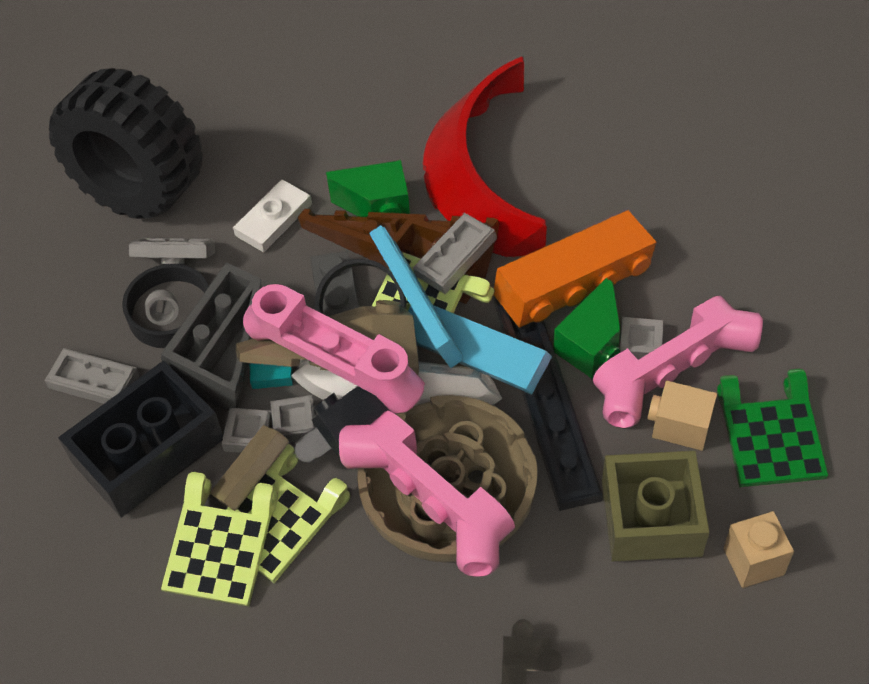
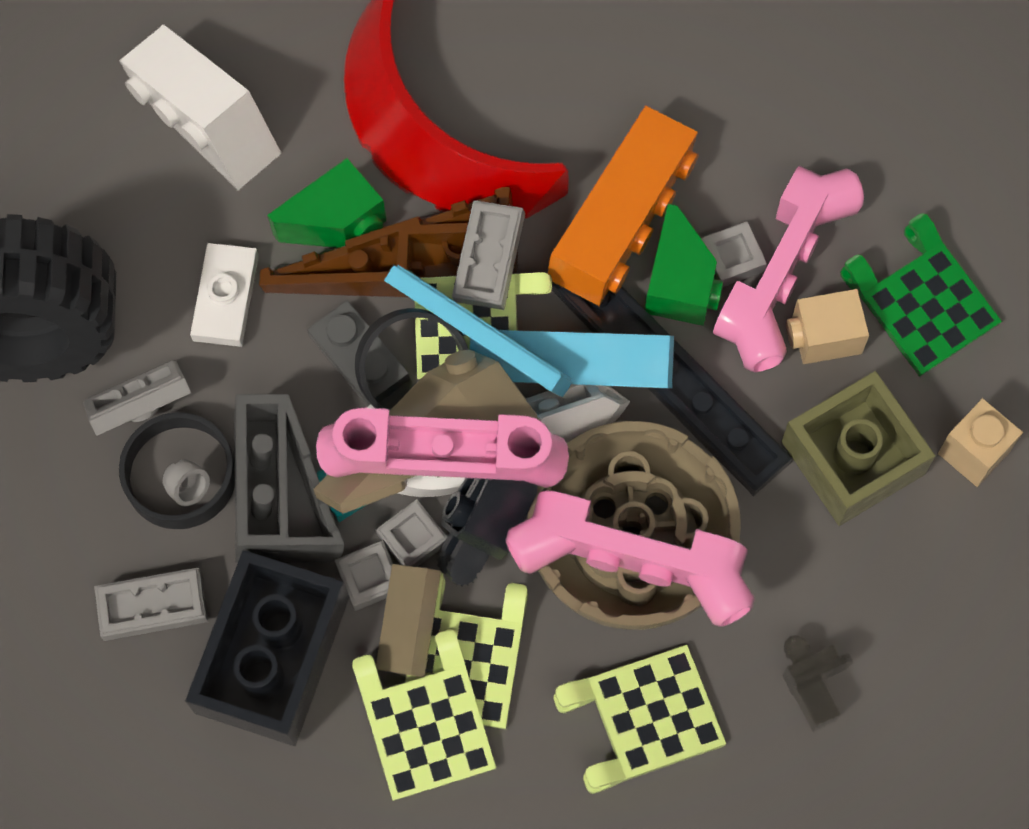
camera: 30 degrees left, 15 degrees up
(331, 100) = (201, 105): none -> white wedge
(384, 625) = (651, 715): none -> yellowish green flag

